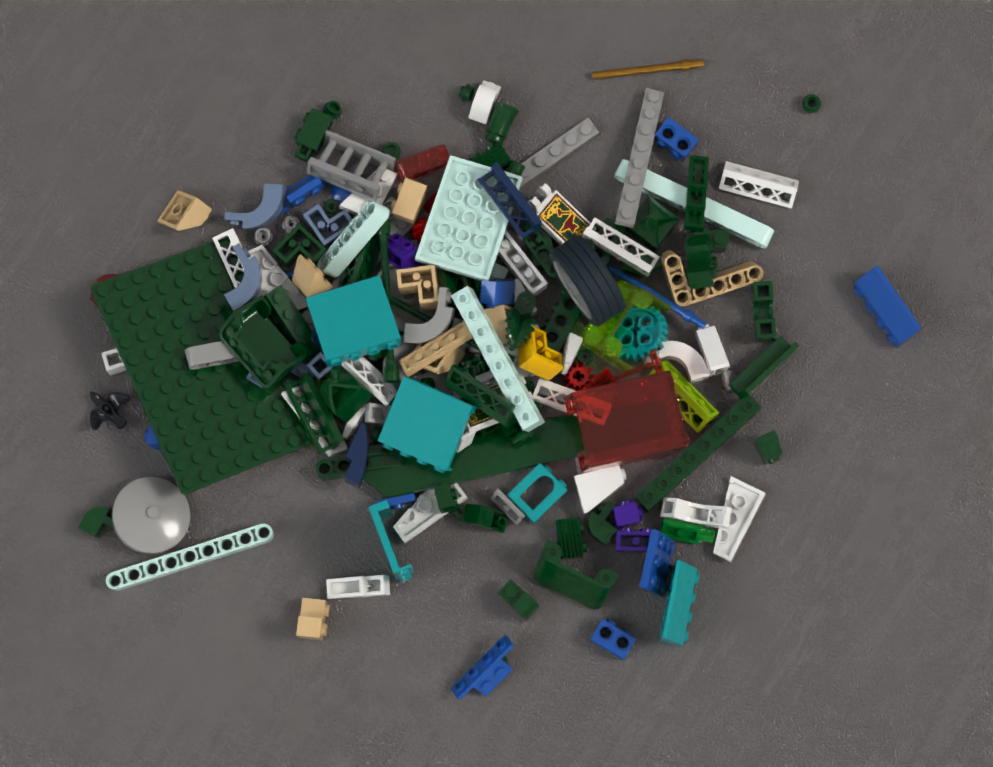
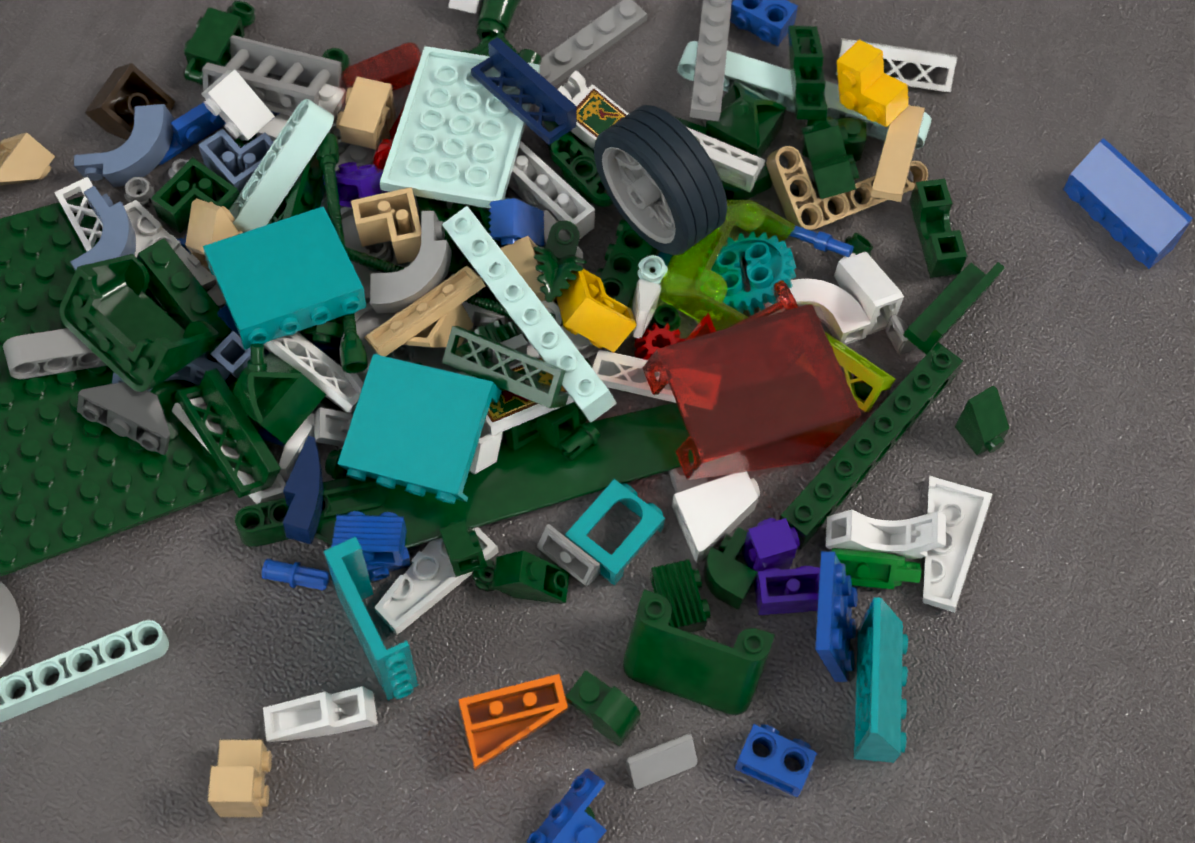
camera: 10 degrees left, 15 degrees down
(256, 171) = (116, 100): none -> dark brown slope
(256, 398) = (127, 414): none -> dark grey slope
(328, 190) = (237, 105): none -> white brick
(348, 501) = (295, 574): none -> blue axle
(393, 488) = (379, 536): none -> blue brick
(463, 599) = (508, 715): none -> orange wedge
(548, 633) = (661, 761): none -> light grey slope
(578, 322) = (652, 262): none -> light aqua plate
(712, 317) = (859, 243): none -> dark green plate
(733, 214) = (866, 86): none -> yellow brick
(745, 259) = (897, 154): none -> tan tile

